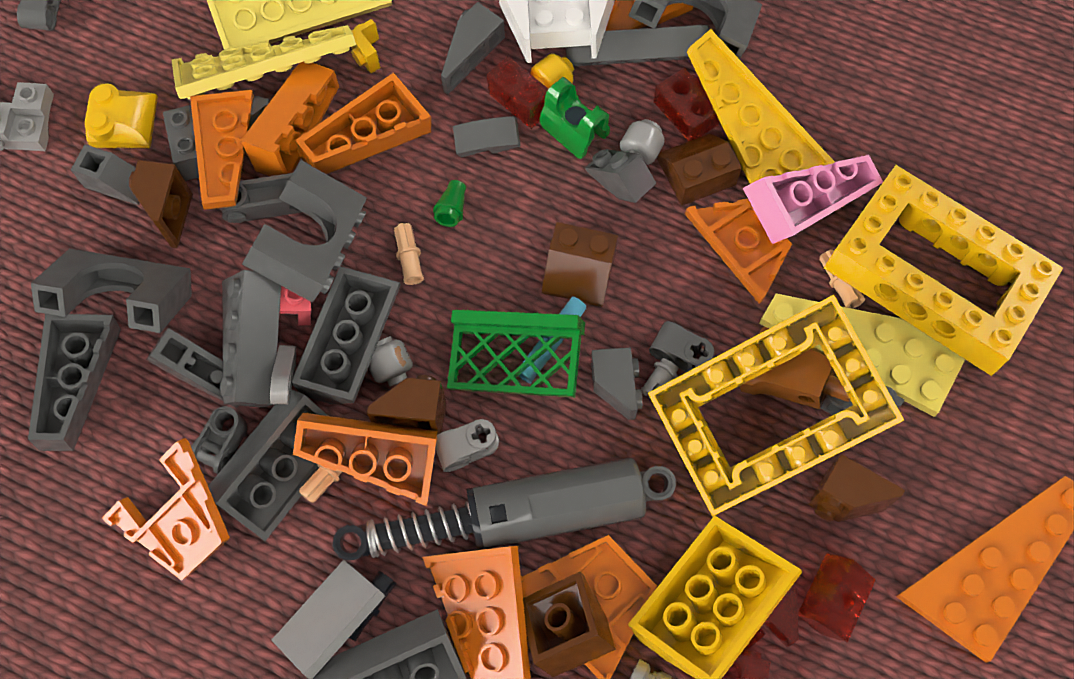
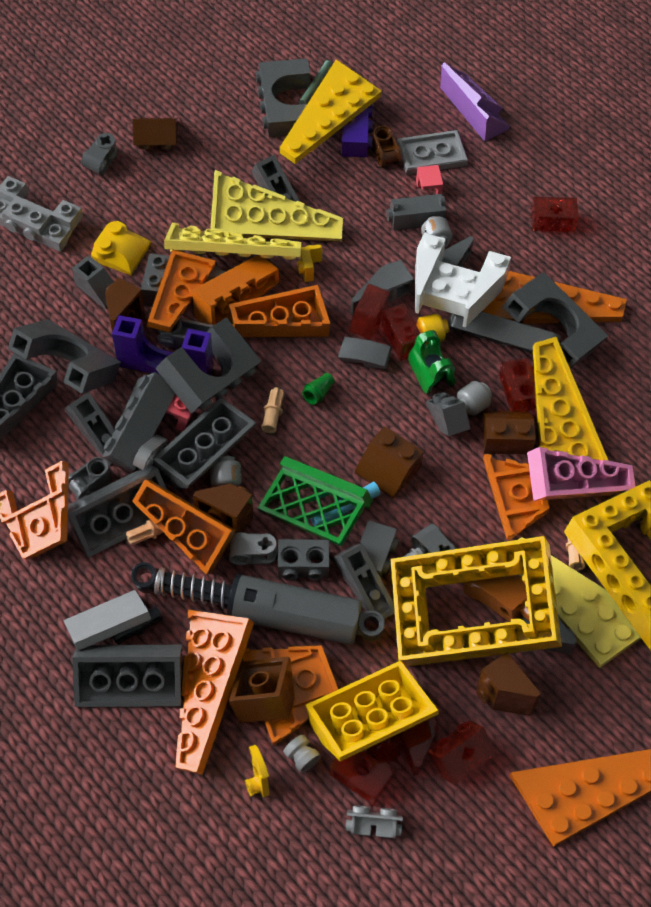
camera: 20 degrees right, 10 degrees down
(207, 248) = (139, 354): none -> dark purple arch
(470, 82) = (369, 311): none -> clear red slope
(529, 424) = (303, 552): none -> dark grey brick
(619, 427) = (364, 580): none -> dark grey slope

